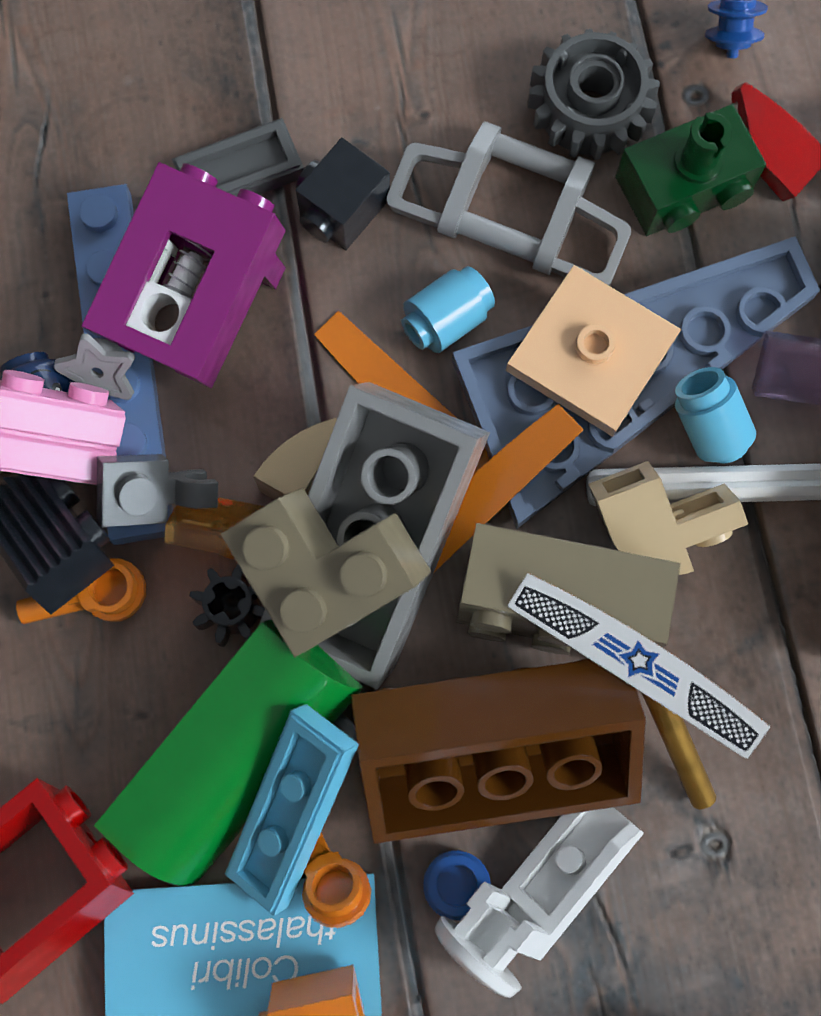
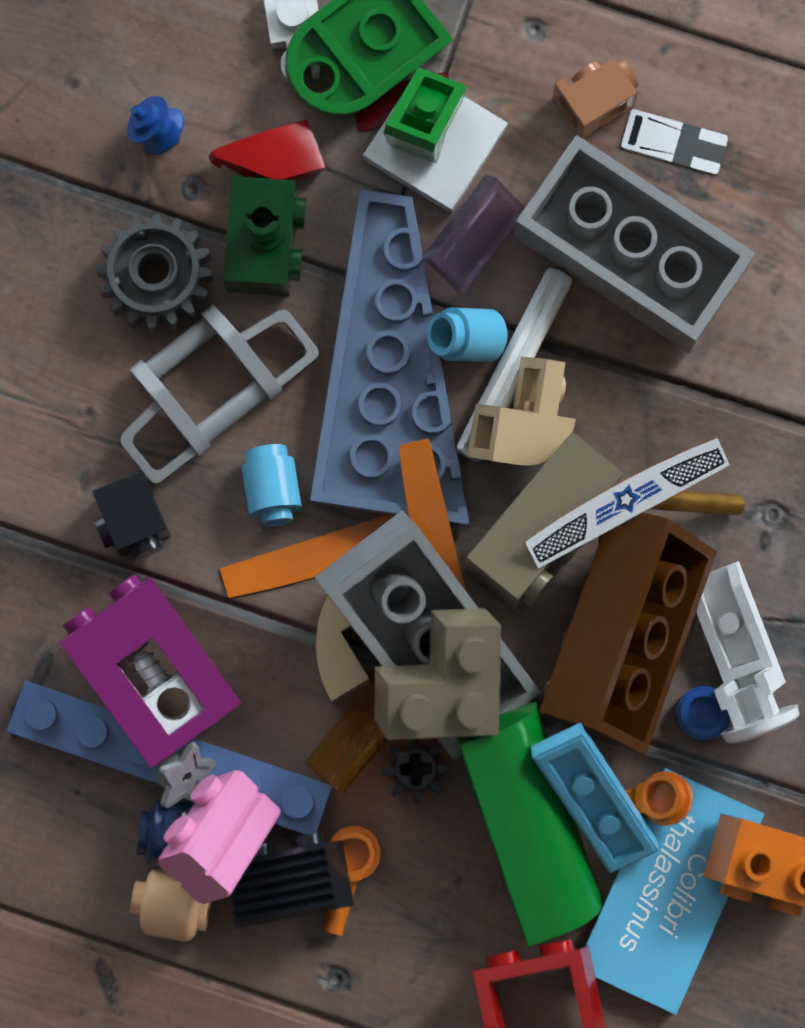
camera: 60 degrees left, 5 degrees up
(141, 488) = (295, 789): dark grey plate -> none
(250, 160) = (55, 581): dark grey tile -> none
(593, 350) = (369, 395): light nougat plate -> none

